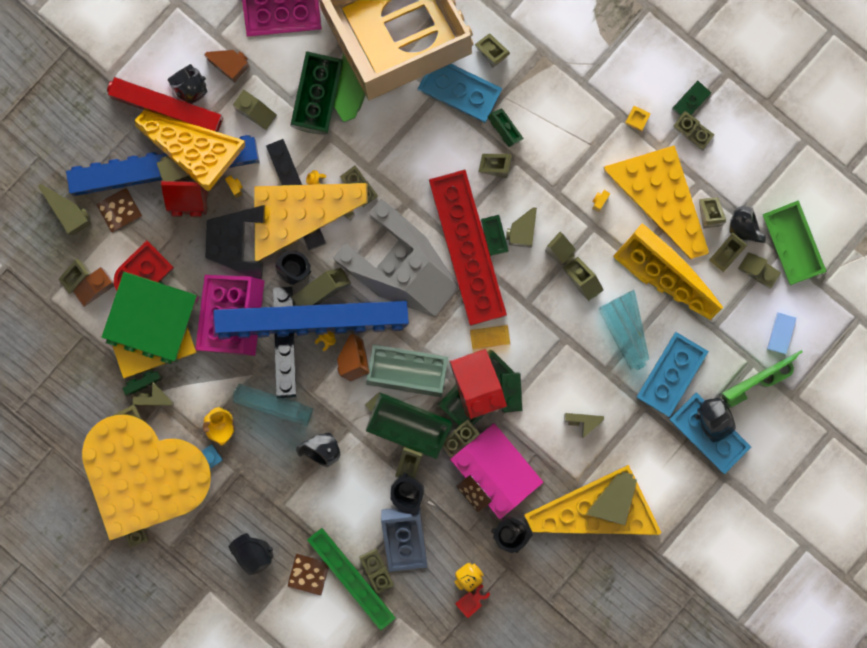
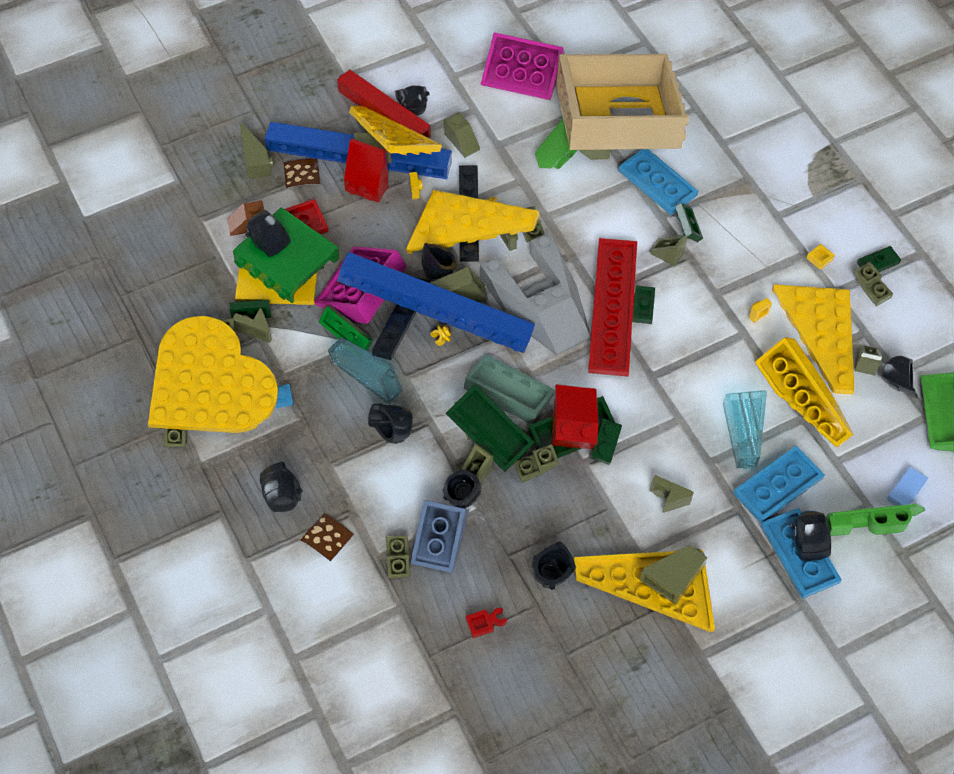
camera: 20 degrees right, 25 degrees down
(74, 275) = (233, 202): olive slope -> none
(126, 310) = (267, 233): none -> black helmet
(219, 425) = (304, 367): yellow hair -> none
(226, 240) = (389, 220): black wing -> none
(228, 62) = (455, 94): dark orange slope -> none
(238, 371) = (343, 327): none -> green plate
(316, 93) = (522, 139): dark green brick -> none
(351, 578) = (369, 555): green plate -> none
(353, 359) = (460, 357): dark orange slope -> none
(468, 577) = (491, 595): yellow head -> none
(474, 493) = (529, 515): reddish brown sticker -> none
(490, 337) = (611, 390): clear yellow plate -> none
(492, 50) = (702, 161): olive slope -> none
(497, 470) = (560, 506): dark pink slope -> none
(522, 230) = (673, 308): olive slope -> none
(561, 249) = (704, 332): olive slope -> none
(583, 278) = (718, 369): olive slope -> none
(728, 252) = (876, 391): olive slope -> none
(759, 270) = (900, 422): olive slope -> none

